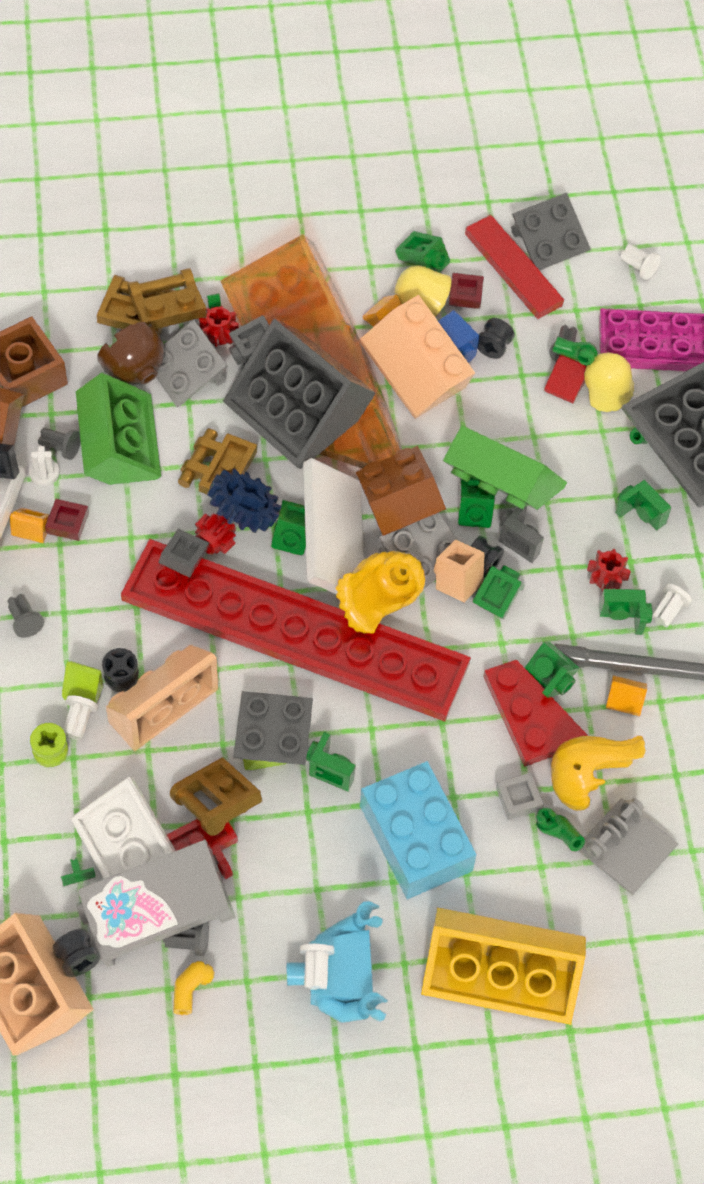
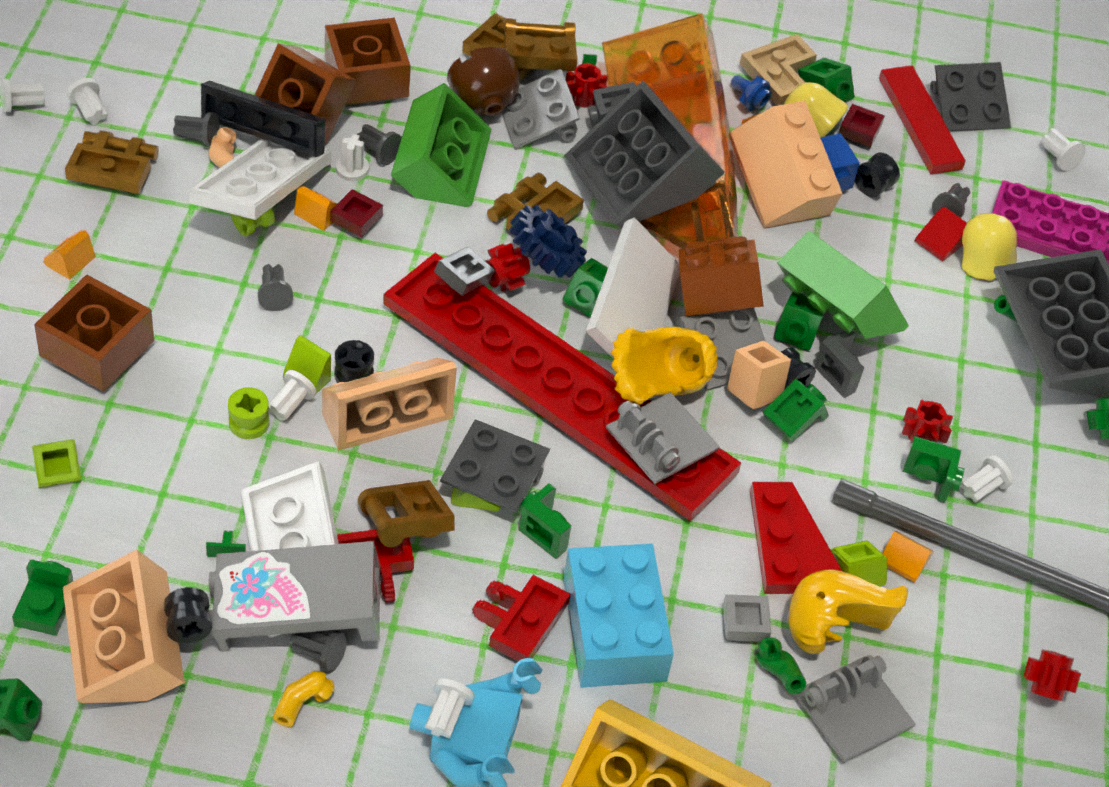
camera: 15 degrees right, 10 degrees down
(347, 855) = (529, 616): none -> red hinge
(366, 288) = (755, 93): none -> blue plate
(373, 253) = (779, 64): none -> tan plate
(400, 657) = (661, 436): none -> light grey hinge
(552, 670) = (829, 502): green bracket -> none
(580, 351) = (965, 206): green arm -> none
(593, 714) = (862, 561): none -> lime slope
(647, 502) = (992, 371): green bracket -> none

